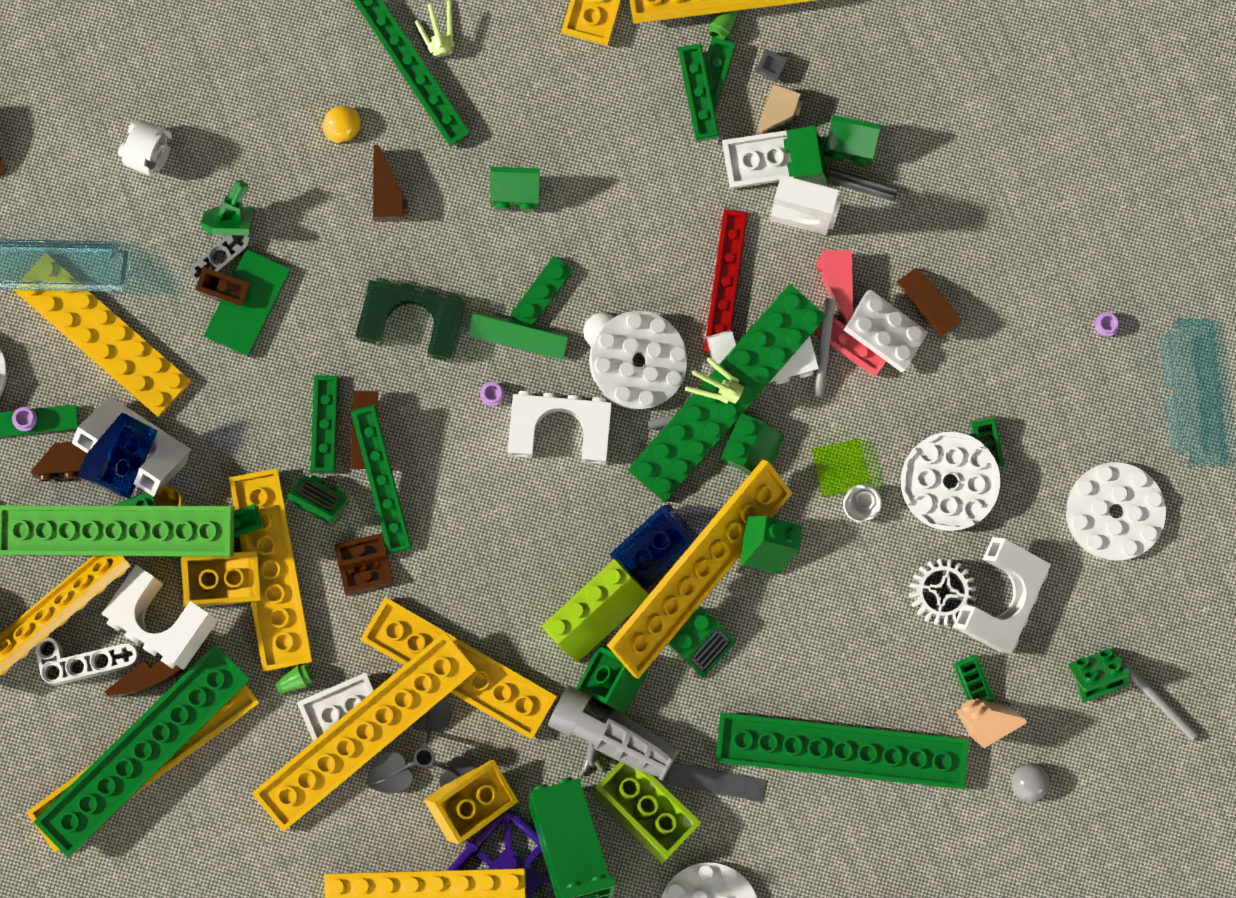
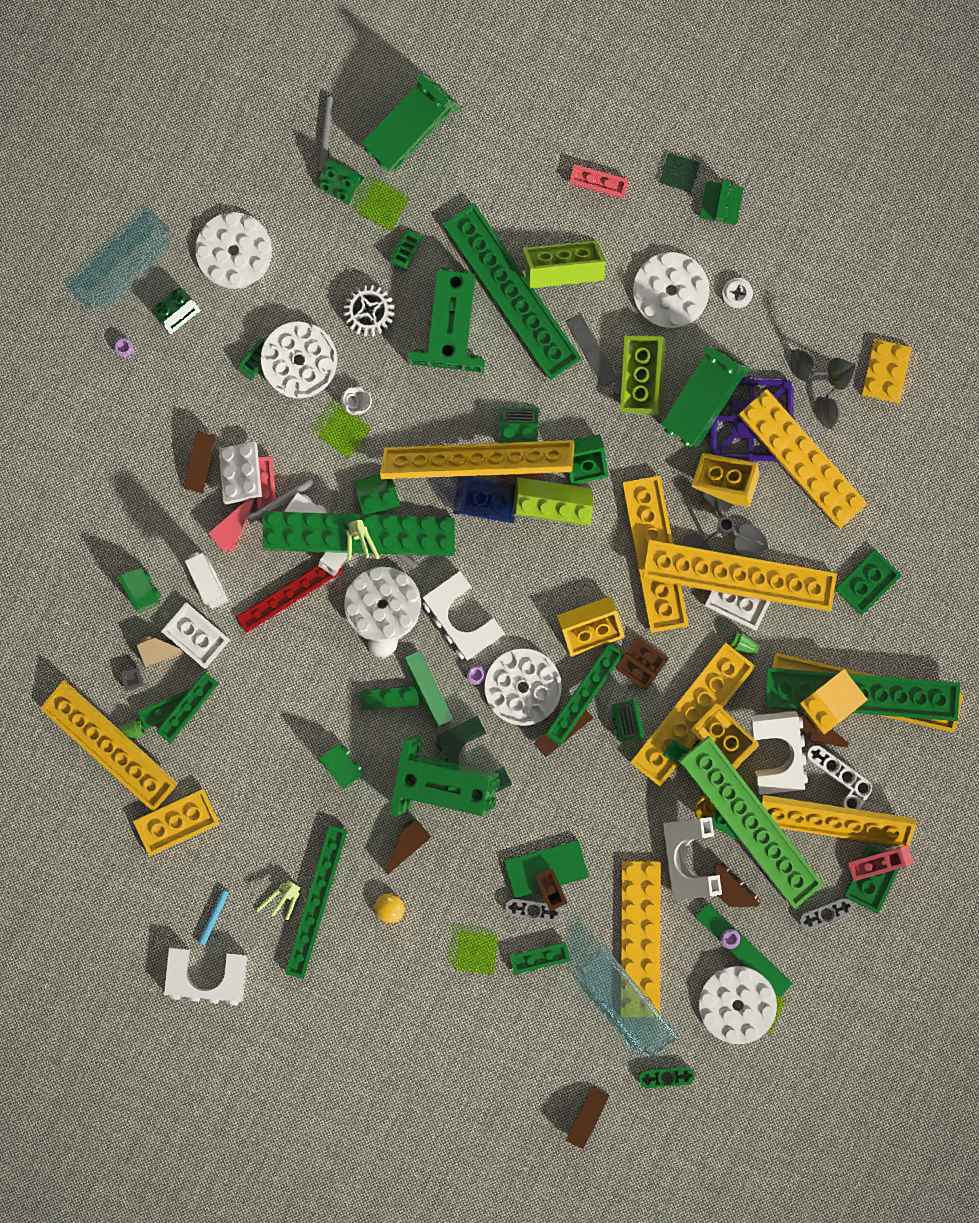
camera: 130 degrees left, 5 degrees up
(118, 456) = (706, 858): clear blue slope -> none
(145, 147) = (506, 1012): white brick -> none
(159, 712) = (832, 702): none -> yellow slope
(168, 224) = (540, 958): none -> green plate
(224, 167) = (477, 953): none -> clear neon green tile
(231, 216) = (504, 922): green piece -> none
(248, 857) = (867, 582): none -> green tile
(324, 424) = (579, 758): green tile -> none
(414, 265) = (441, 783): none -> green brick
(443, 543) = (590, 626): none -> yellow slope
(447, 403) = (527, 667): none -> white plate
(591, 760) = (641, 431): light grey bar -> none
(612, 733) = (617, 430): light grey piece -> none
(769, 543) = (427, 433): green slope -> none
(806, 155) = (173, 608): green slope -> none
(826, 825) = (563, 264): none -> lime slope
(860, 660) = (450, 324): none -> green brick
(862, 184) = (160, 563): dark grey axle -> none
(989, 720) = (422, 219): light nougat slope -> none
(1027, 576) = (318, 268): white arch -> none
(1030, 782) = (437, 169): light grey hair -> none
(1038, 697) = (384, 205): none -> clear neon green tile
(1099, 791) = (410, 124): none -> green brick
(1102, 404) = (175, 309): none -> green bracket

